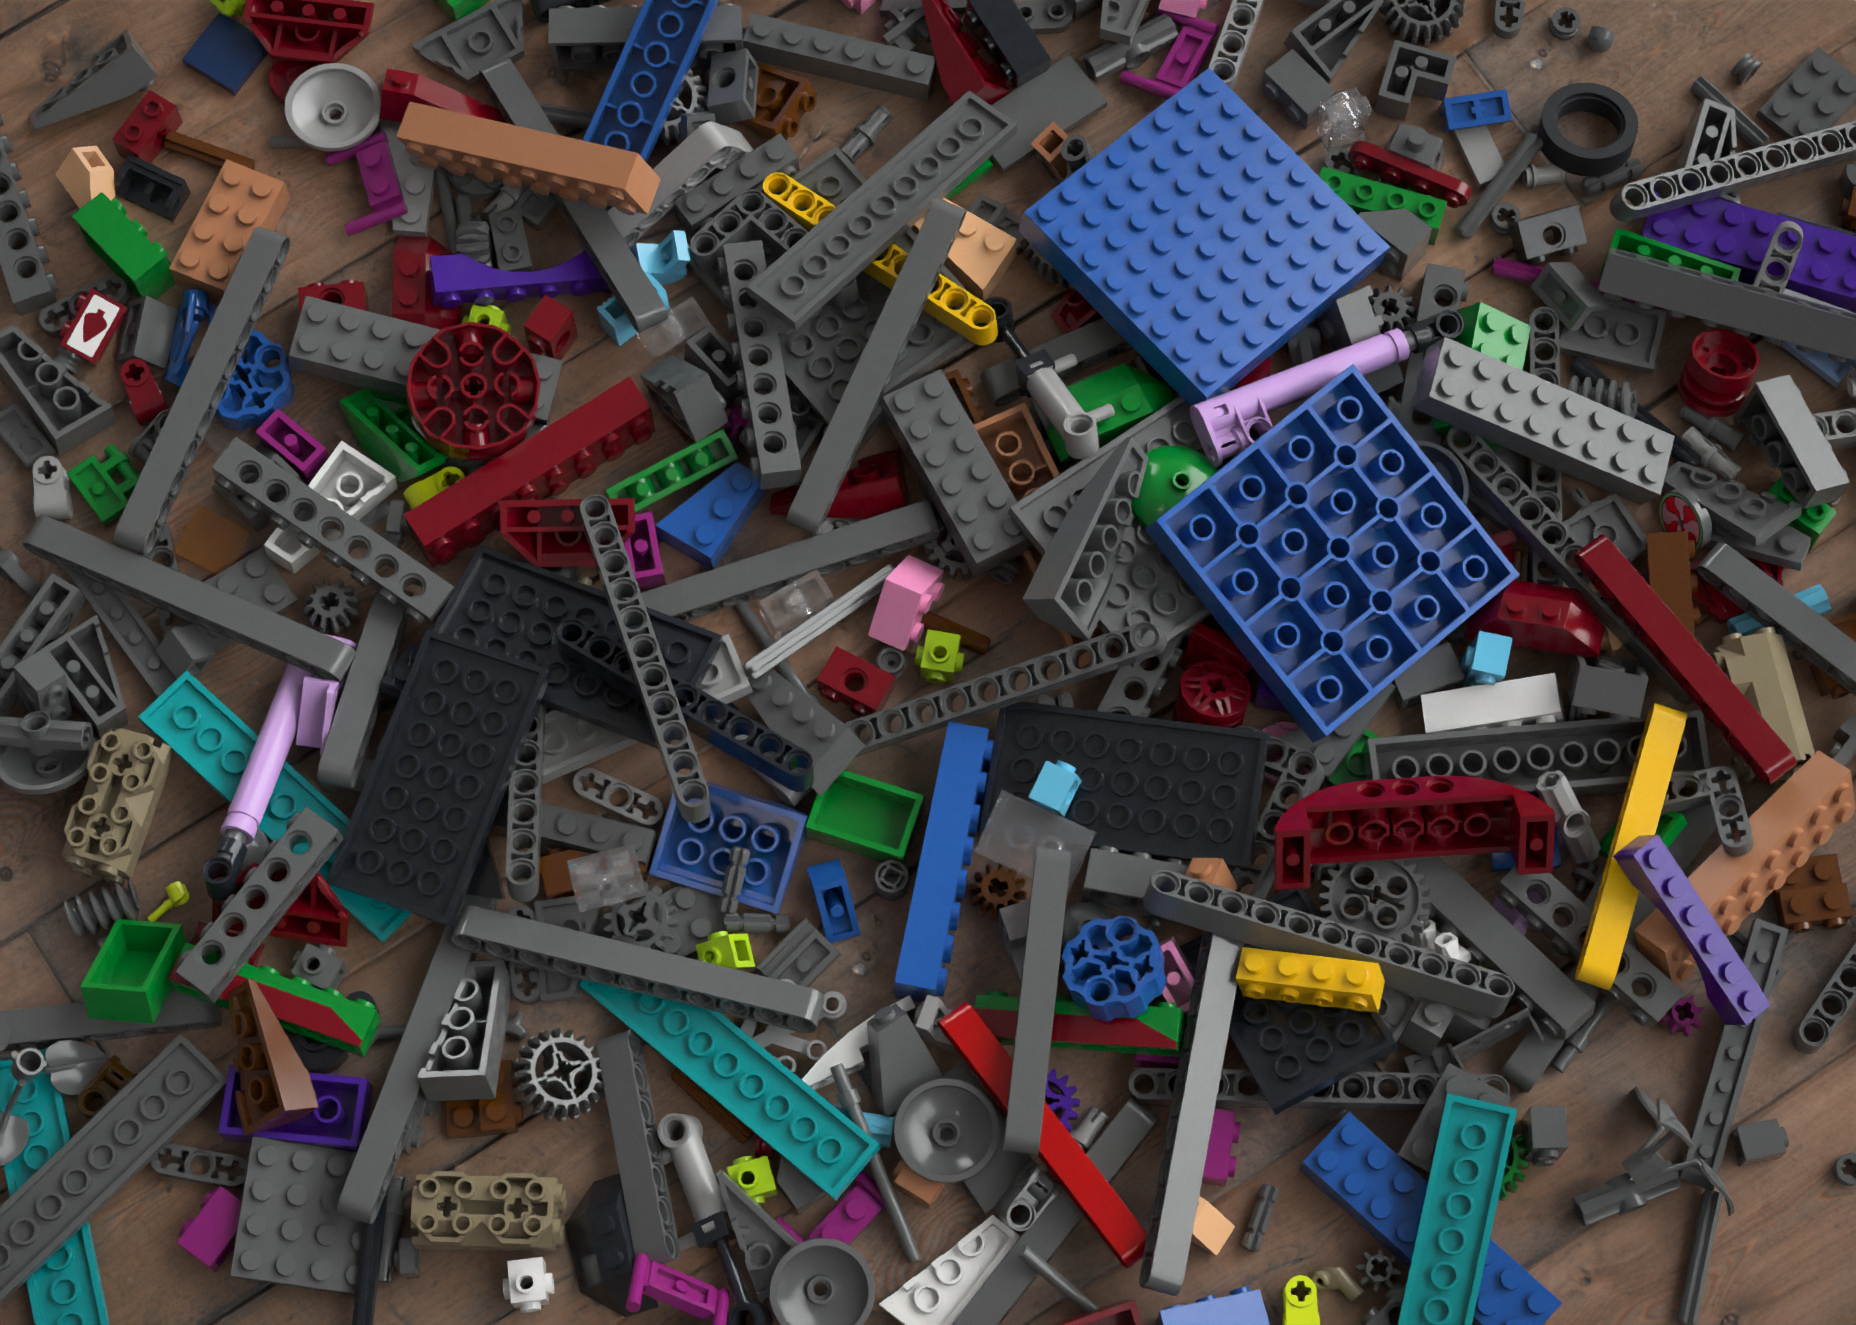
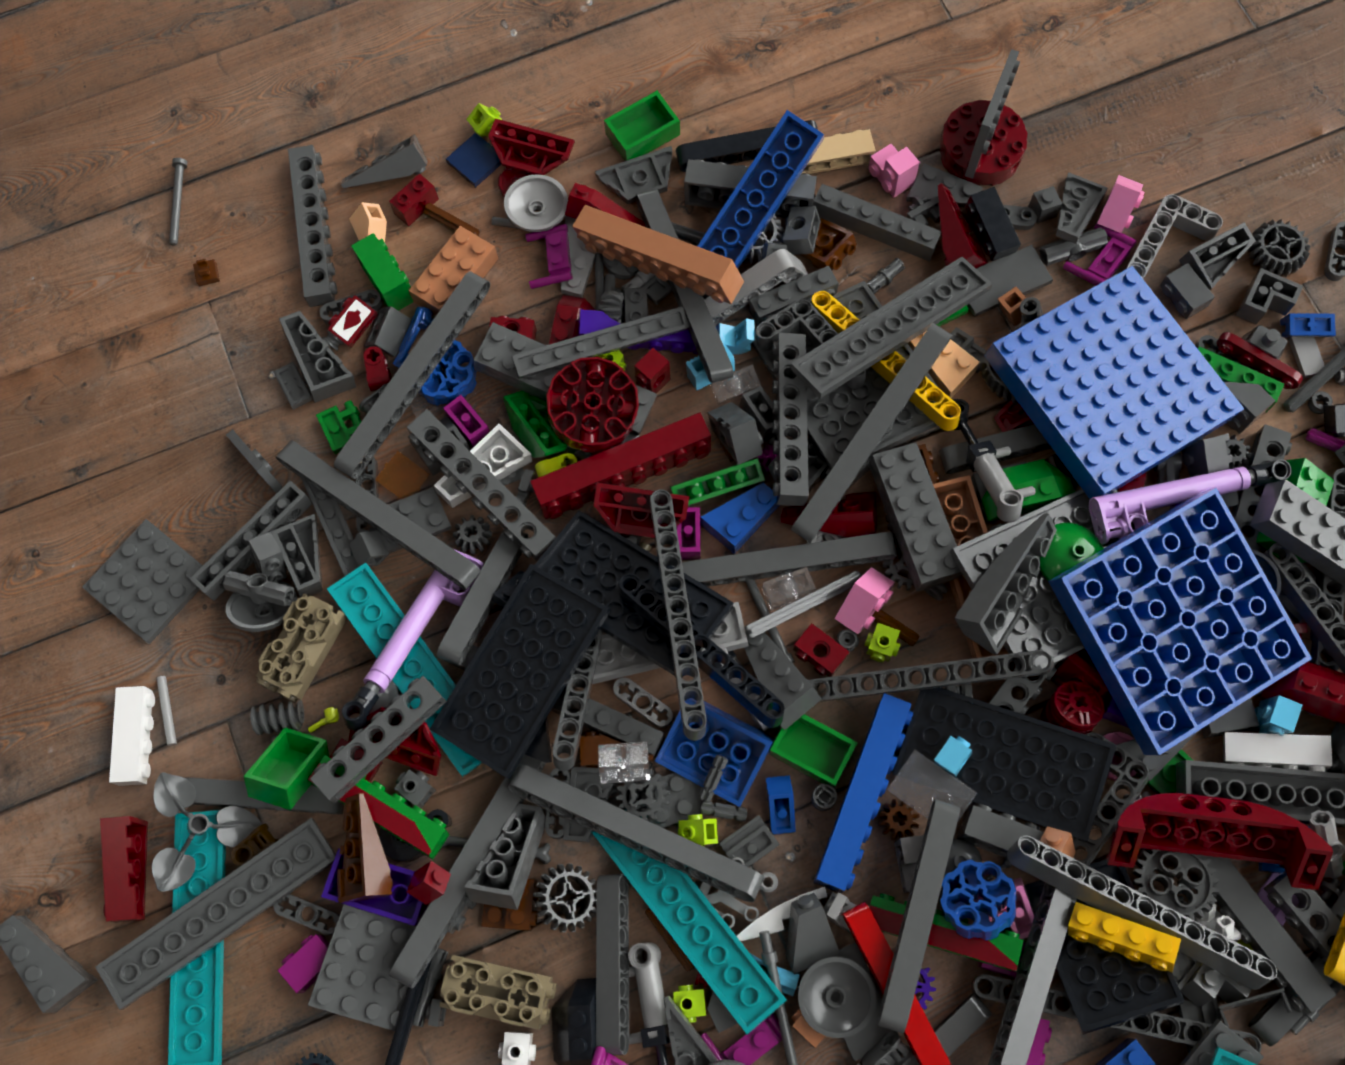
camera: 15 degrees right, 0 degrees up
(51, 495) = (304, 429): light grey piece -> none
(152, 187) = (409, 237): black hinge -> none
(316, 711) = (446, 606): lavender panel -> none
(367, 1082) = (428, 883): none -> dark red brick
(468, 299) = (600, 342): none -> dark grey plate
(1089, 1128) = (936, 1011): light grey pin -> none
(1343, 119) = (1216, 316): clear brick -> none

